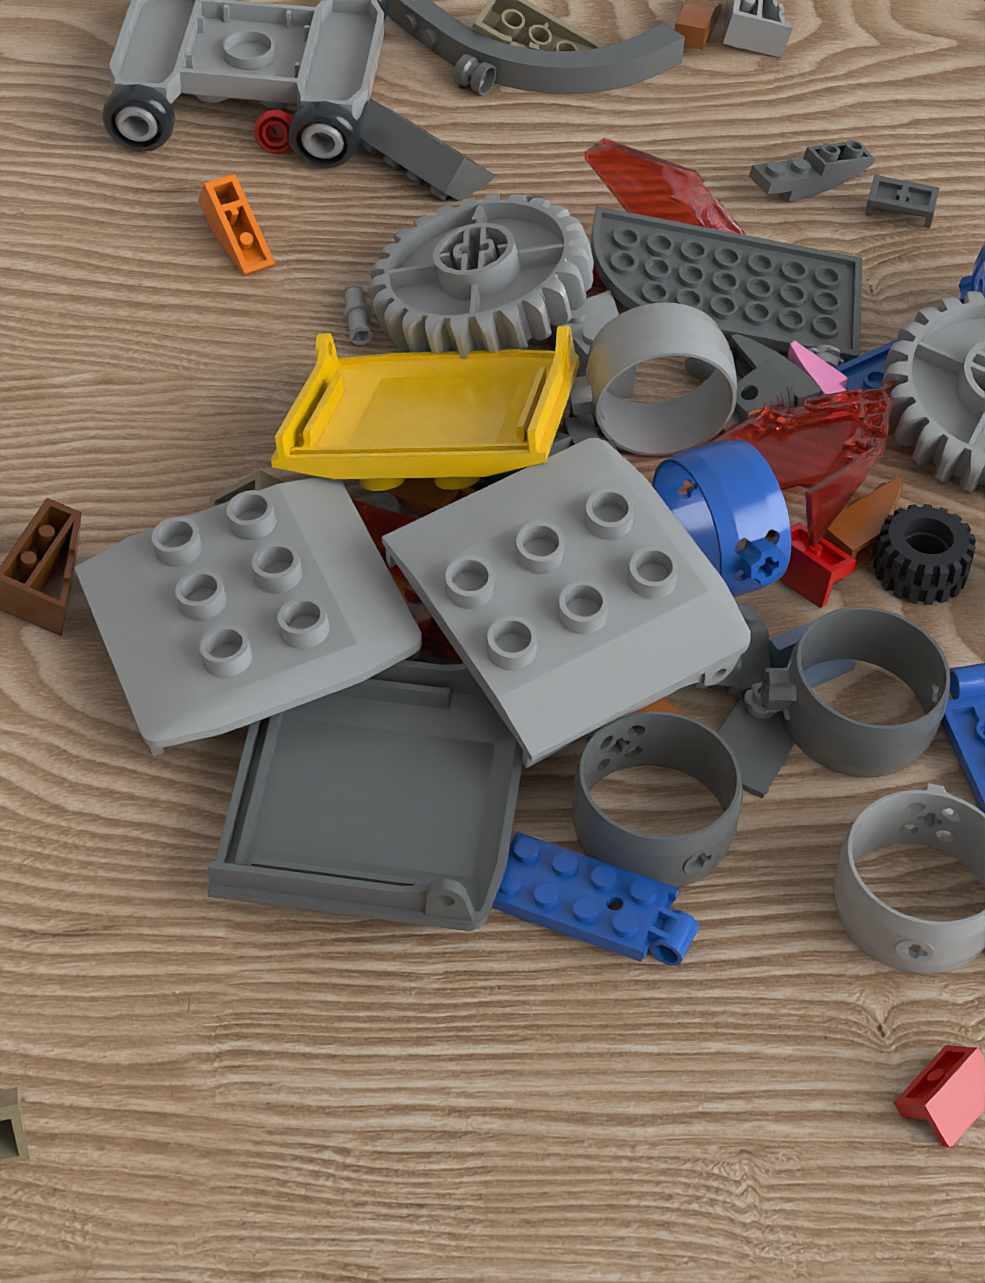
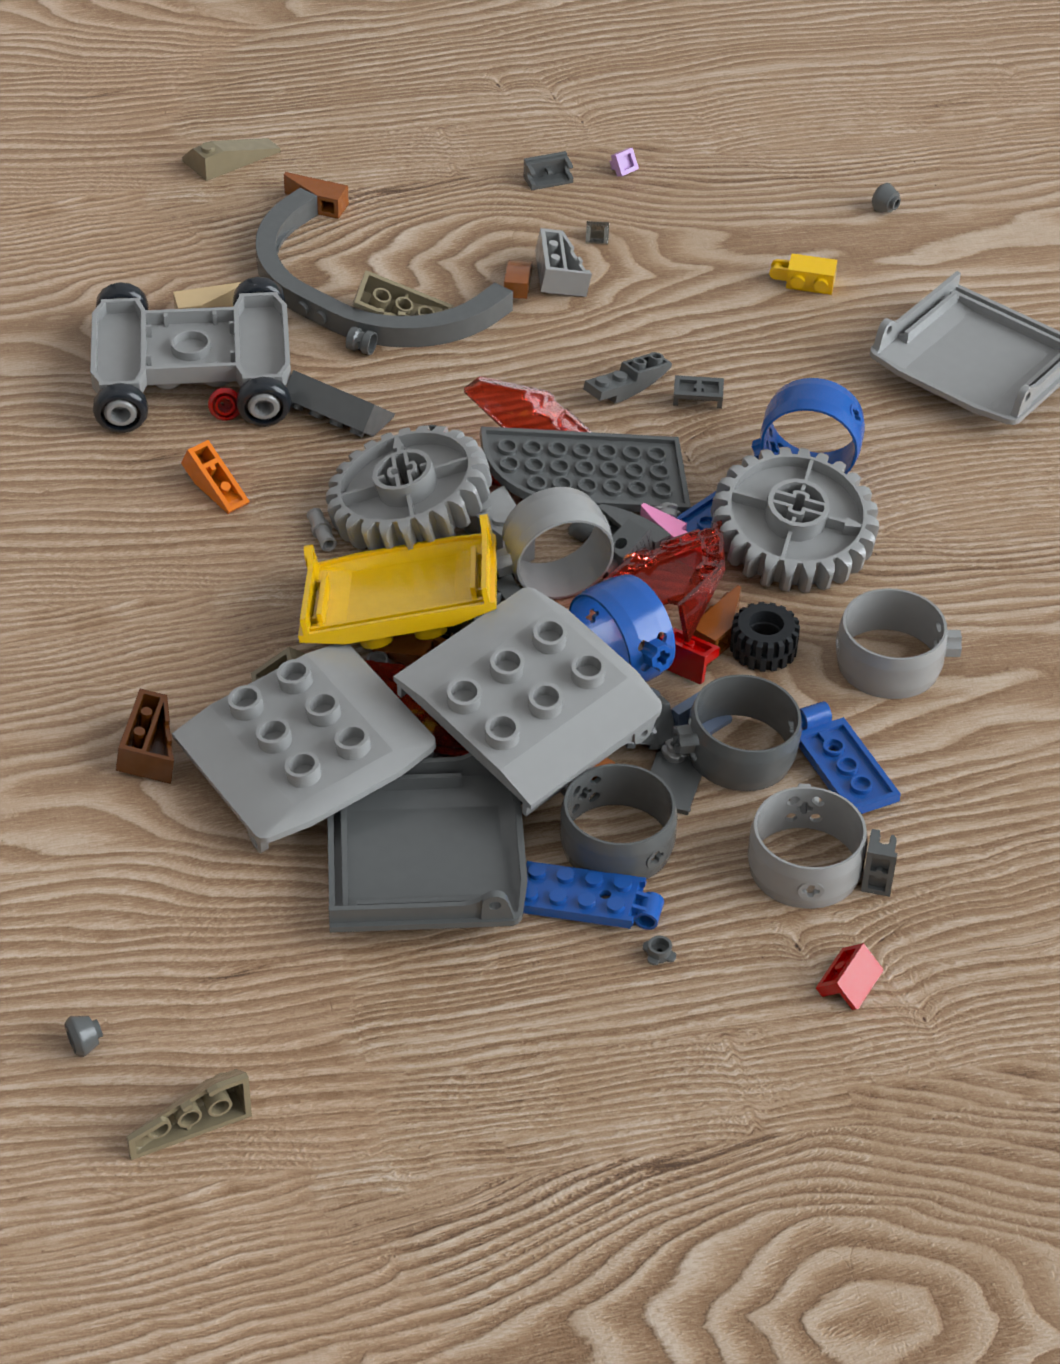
camera: 10 degrees left, 5 degrees down
(677, 992) = (659, 950): none -> dark grey plate

